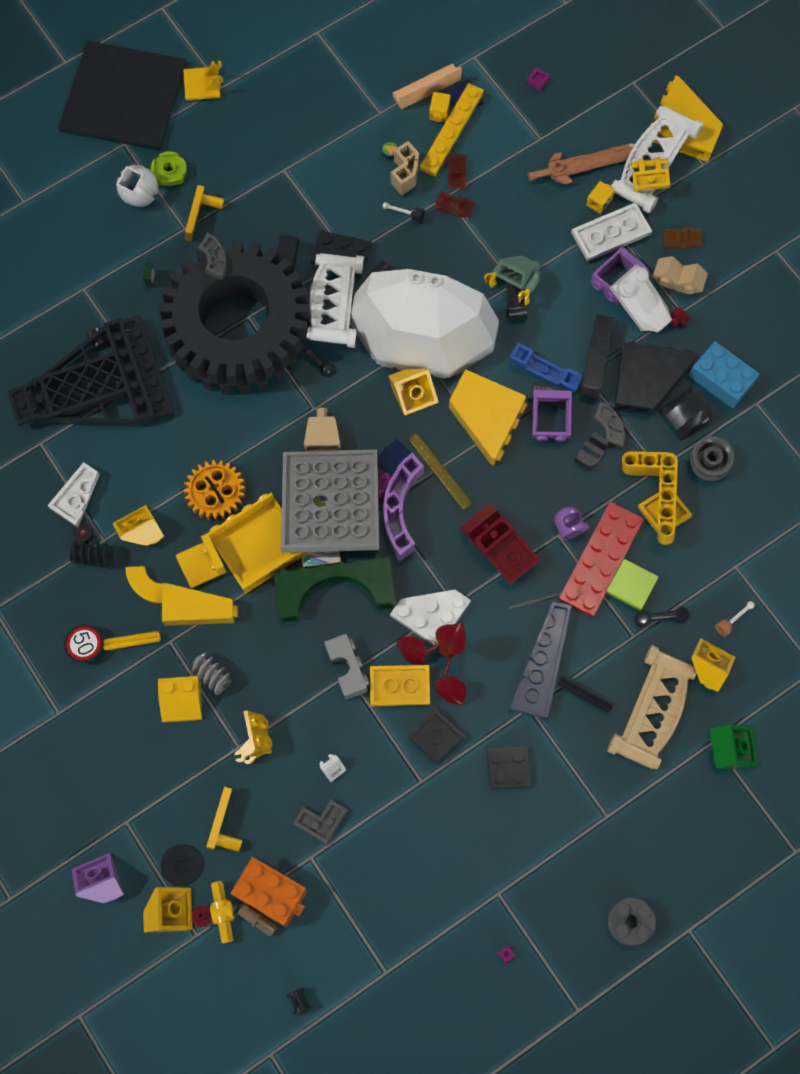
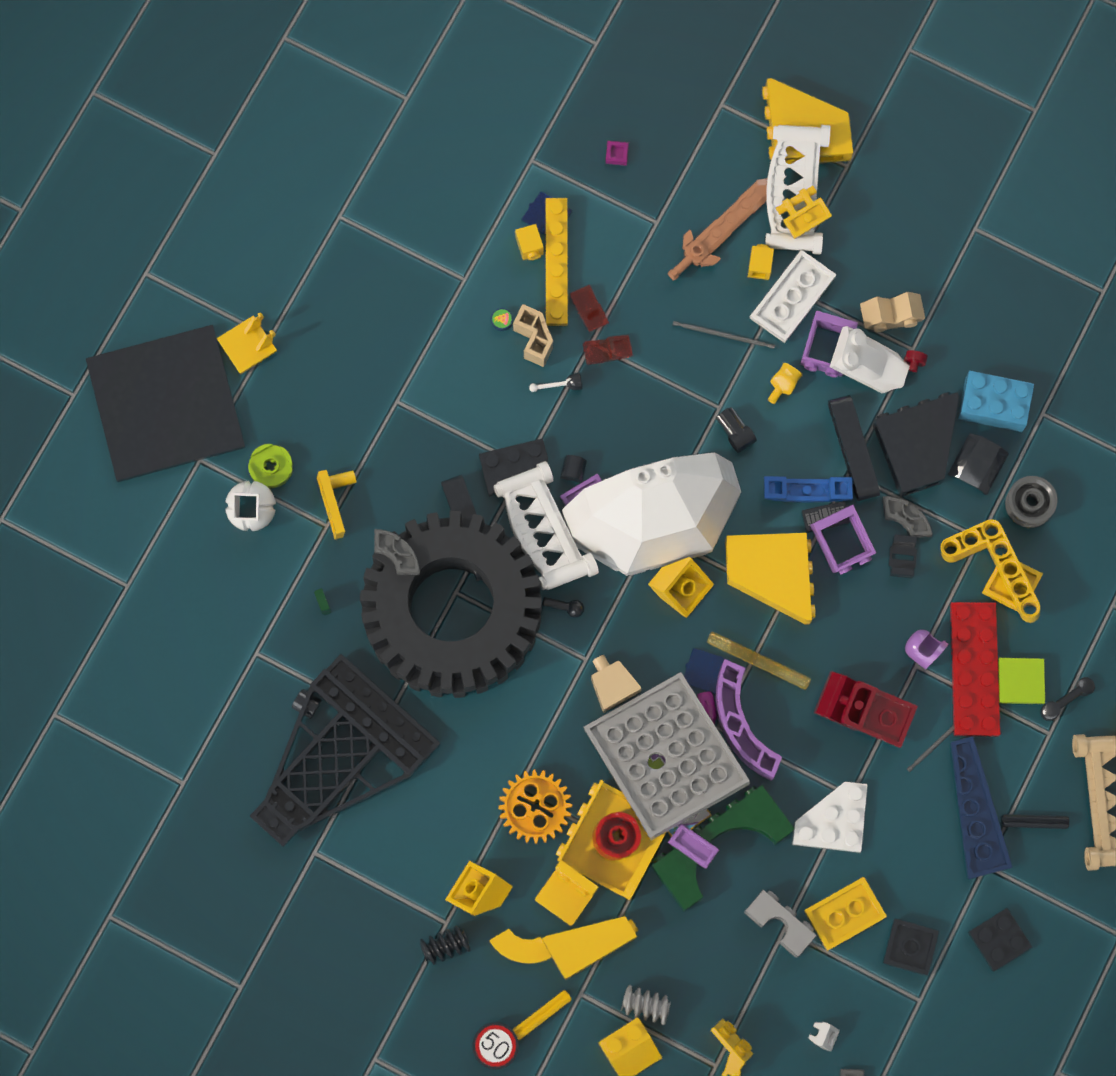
camera: 30 degrees left, 5 degrees up
(75, 495) = (389, 890): white wing -> none
(83, 532) = (421, 927): black tile -> none
(262, 528) = (604, 840): none -> red brick
(312, 574) = (693, 846): none -> medium lavender tile
(426, 86) = (500, 222): light nougat panel -> none
(451, 642) = (875, 844): dark red plant -> none
(519, 272) = (723, 396): sand green torso -> none
(545, 235) = (723, 334): none -> dark grey piece
(571, 287) = (784, 382): none -> yellow piece
(682, 238) = (870, 265): clear orange slope -> none

